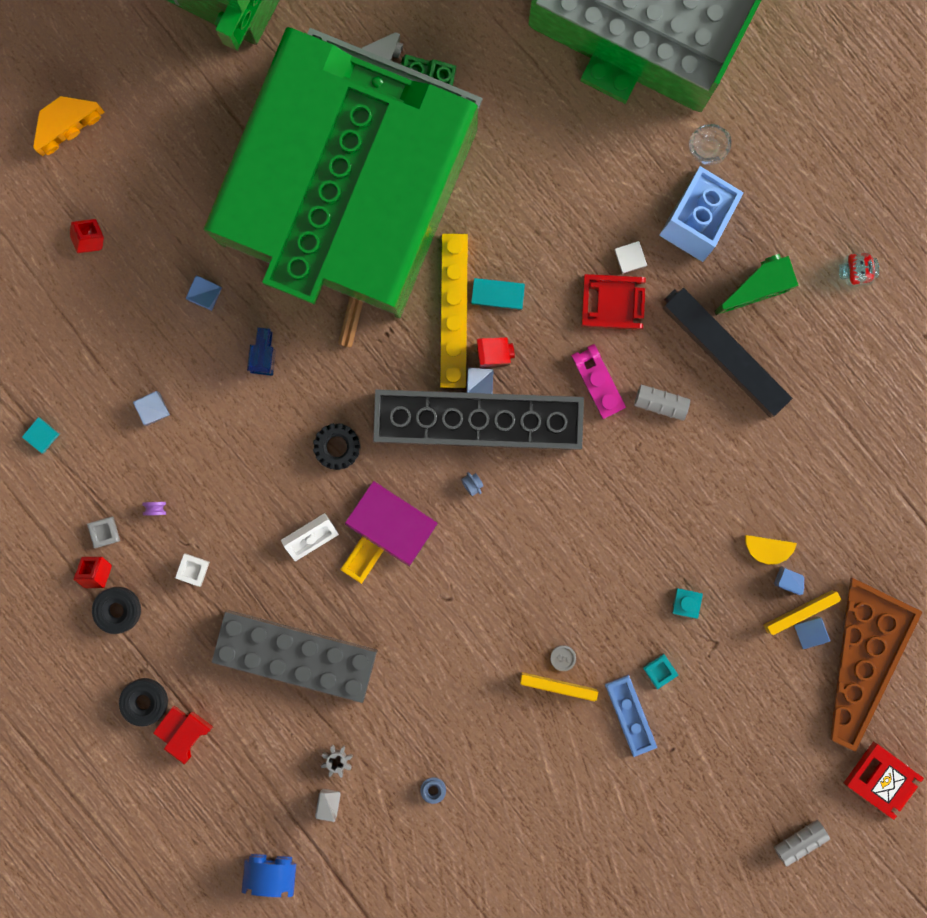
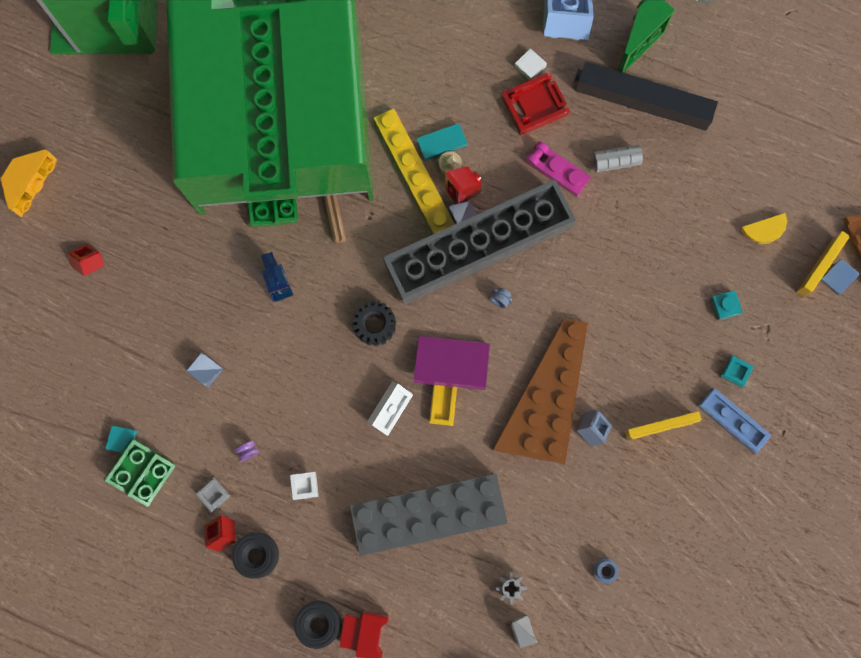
camera: 25 degrees left, 10 degrees down
(44, 475) = (139, 472): none -> green slope
(203, 293) = (203, 257): medium blue slope -> none
(457, 614) = (545, 411): none -> dark orange wing
(494, 320) = (449, 161): none -> tan tile
(494, 654) = (594, 428): none -> sand blue slope
(563, 658) = (651, 402): light grey piece -> none
(790, 581) = (797, 246): medium blue slope -> none

